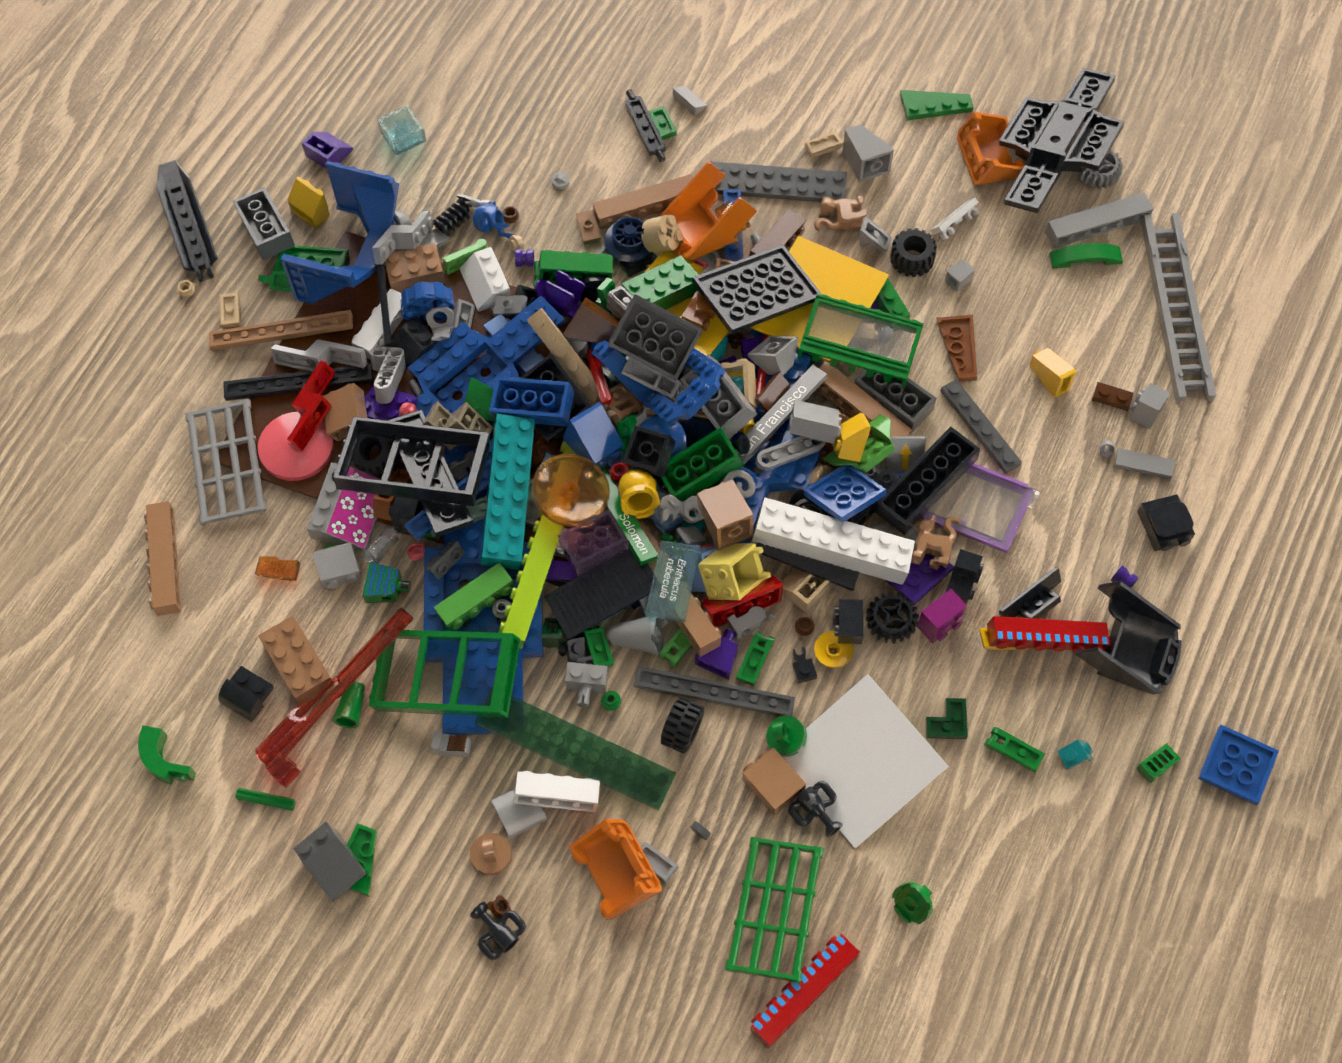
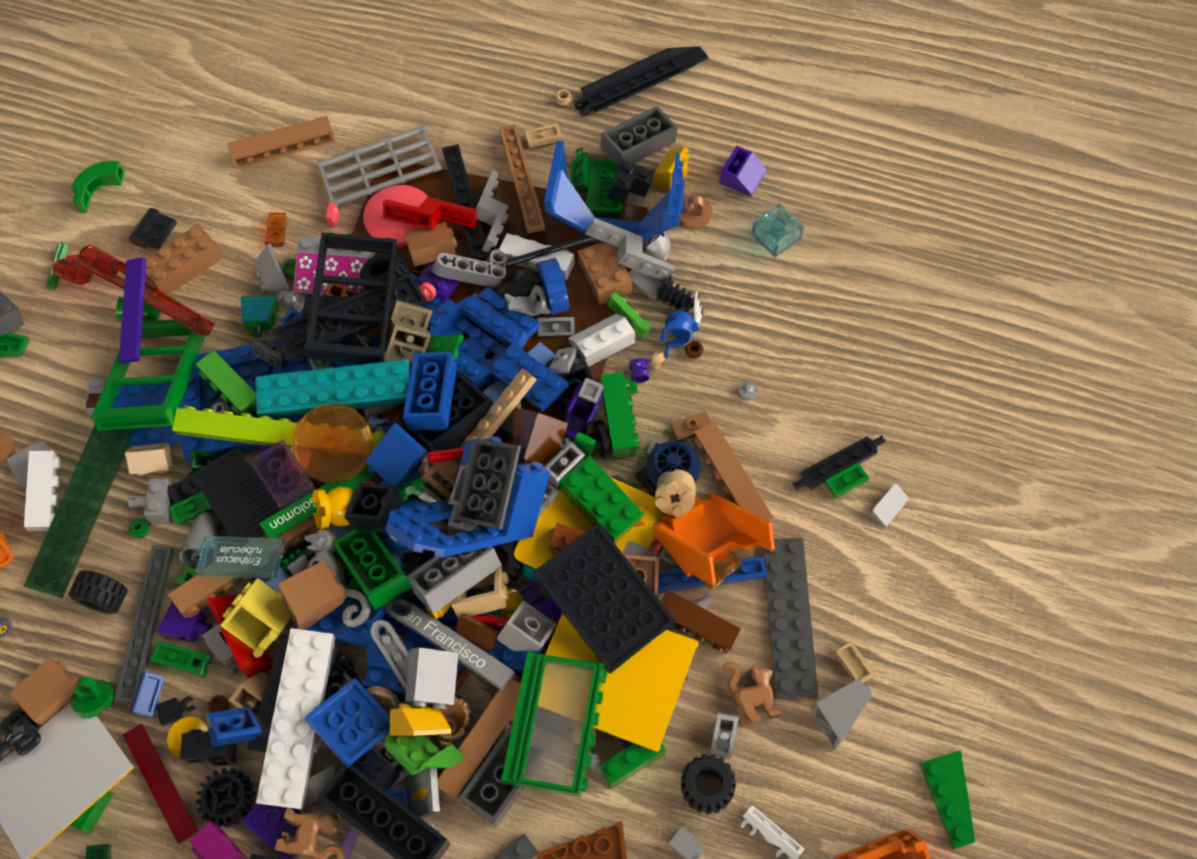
camera: 85 degrees right, 0 degrees up
(276, 509) = (332, 215): none -> coral tile
(316, 236) = (630, 179): none -> black brick
(367, 684) = (132, 310): none -> dark purple tile
(537, 685) = (149, 458): none -> tan brick
(556, 275) = (591, 390): none -> light grey plate
(787, 687) = (147, 694): none -> tile
(839, 587) = (232, 726): none -> blue slope
(880, 673) = (160, 783): none -> dark red tile

